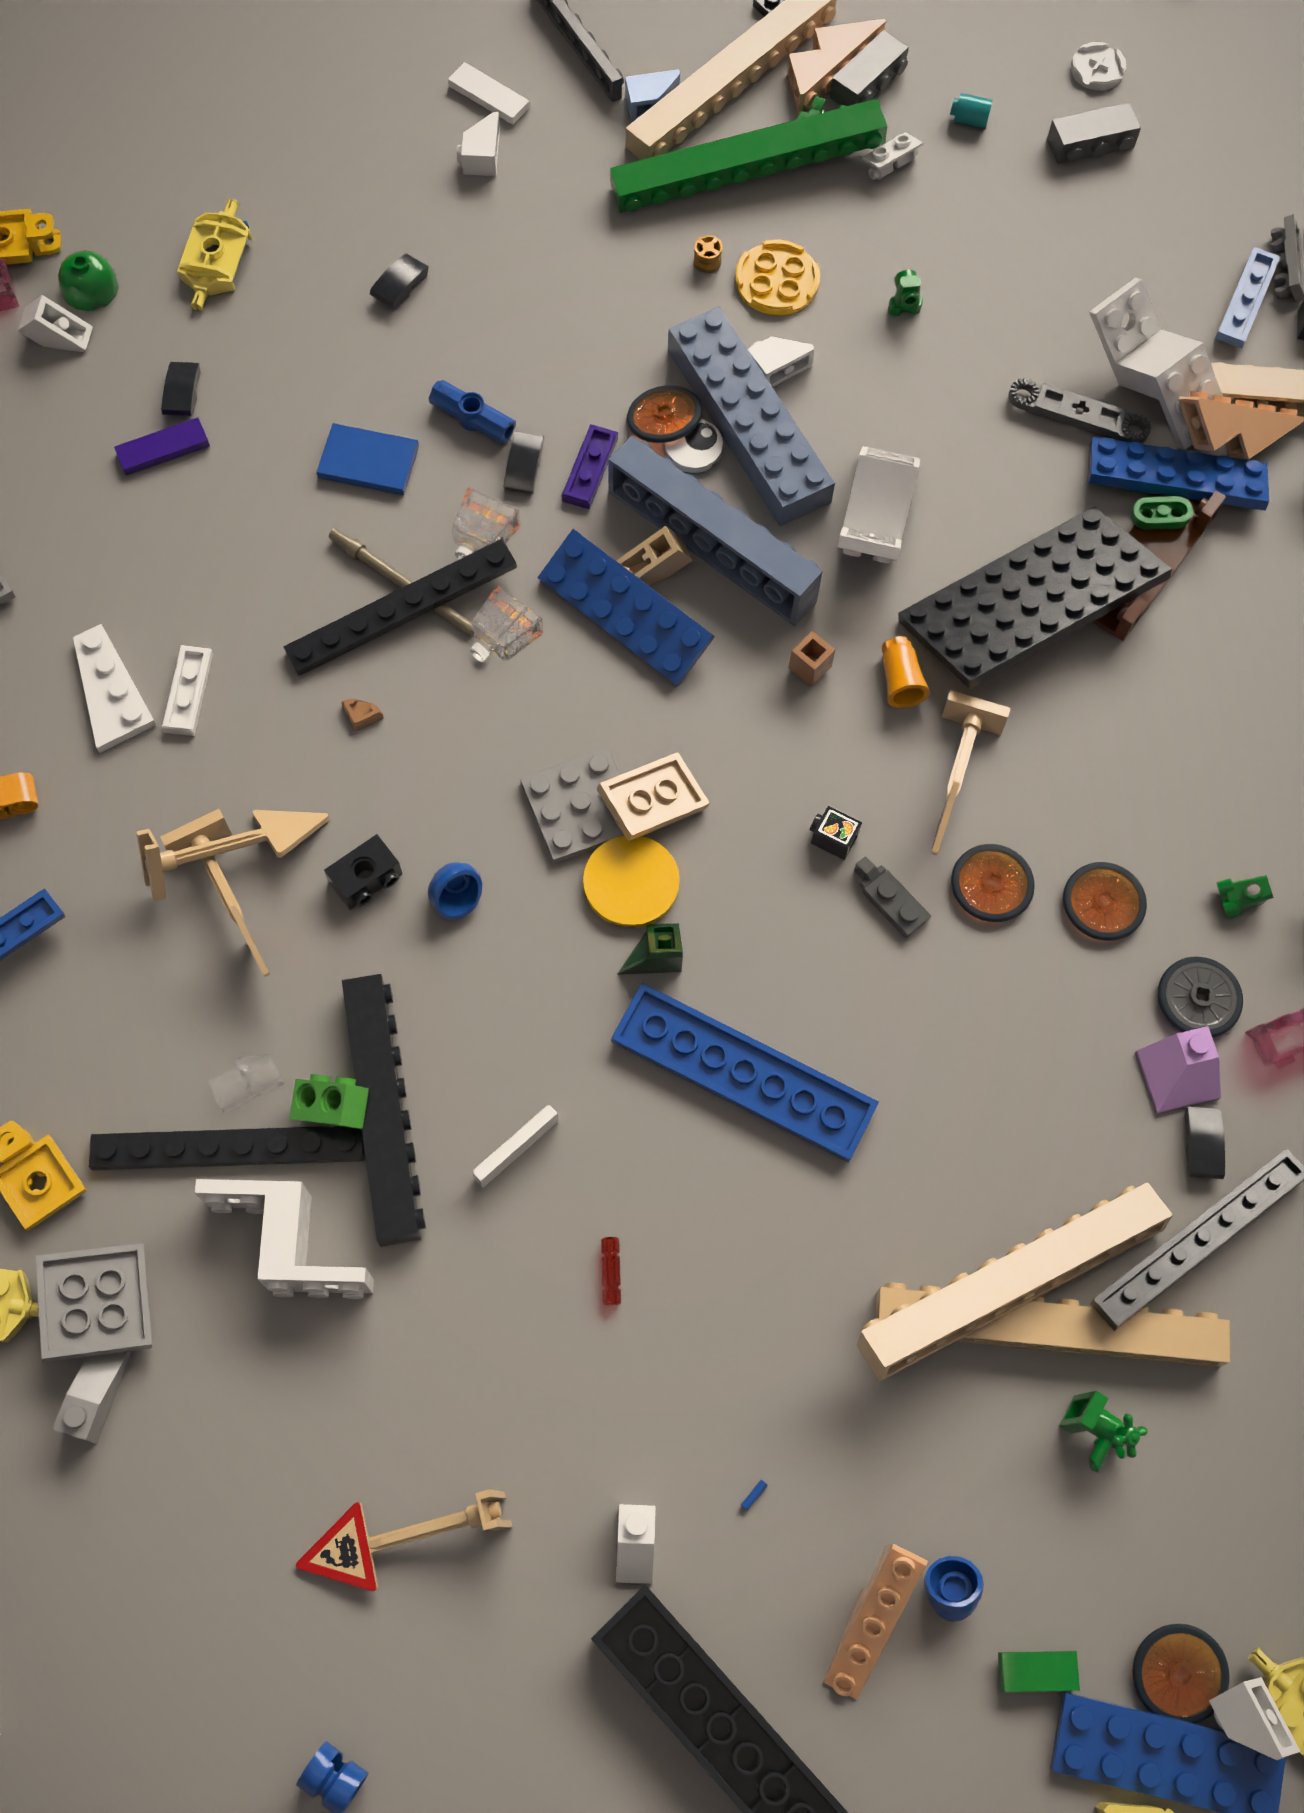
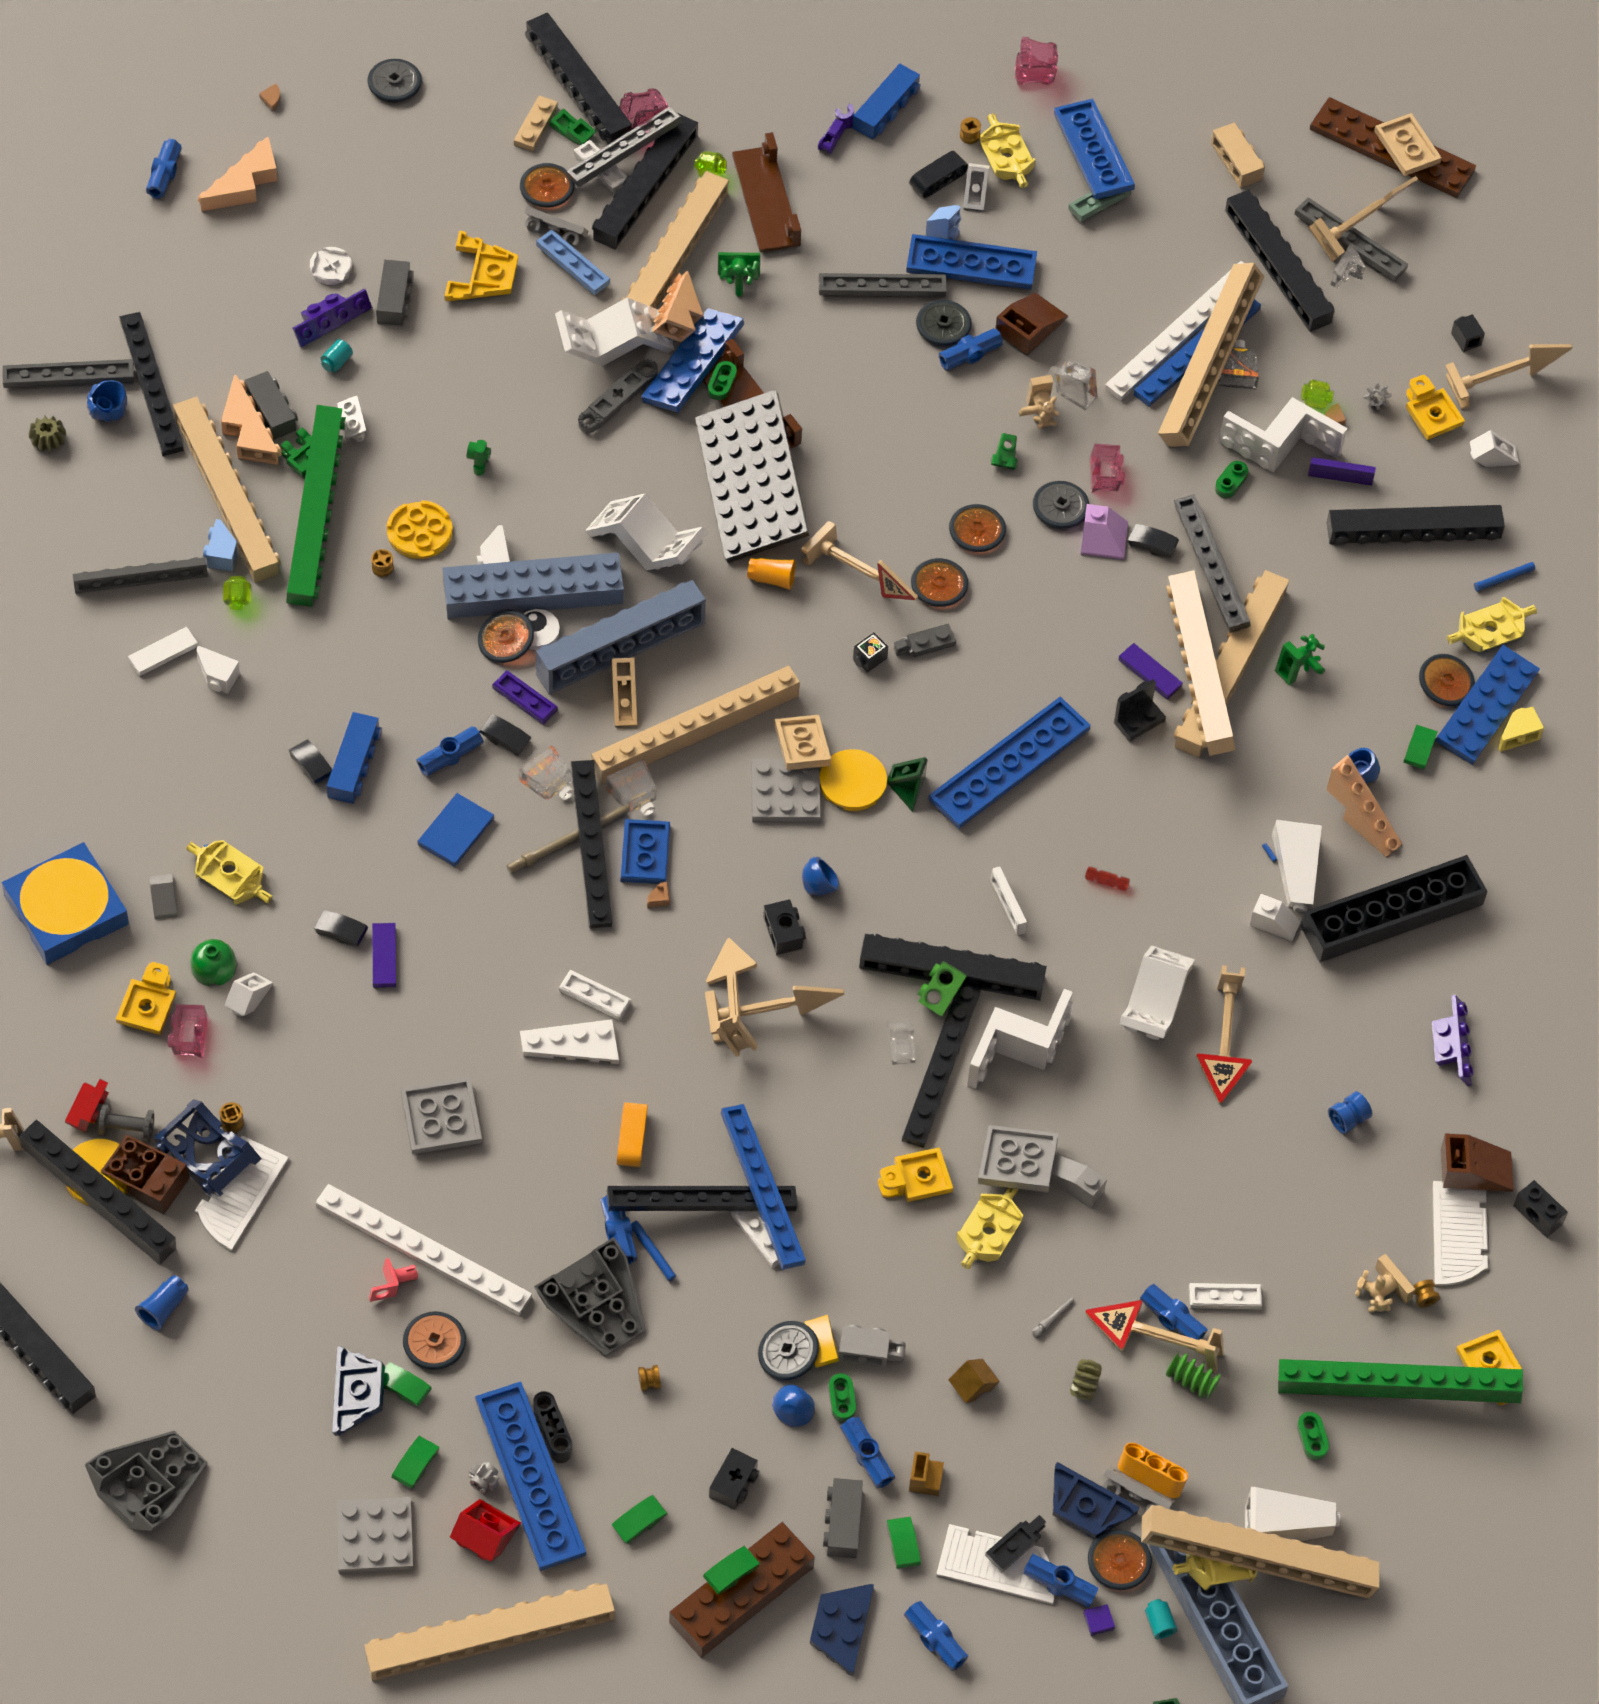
camera: 70 degrees left, 10 degrees down
(109, 115) = (65, 903): none -> tile
(161, 202) = (163, 896): none -> light grey slope
(419, 317) = (353, 758): none -> blue brick
(421, 674) = (645, 851): none -> blue tile
(424, 1406) = (1156, 992): none -> white bracket
(595, 129) = (236, 592): none -> clear neon green head
(626, 607) = (649, 707): blue plate -> none
(631, 665) = (698, 723): none -> tan brick
(748, 1542) = (1297, 859): none -> white slope
(811, 658) = (742, 617): medium nougat brick -> none
(901, 1219) = (1137, 711): none -> black bracket
(985, 1214) = (1148, 669): none -> dark purple tile
(1024, 85) = (329, 315): none -> dark purple bracket
(1181, 220) = (492, 270): none -> yellow wing
(1253, 1719) = (1482, 651): white slope -> none

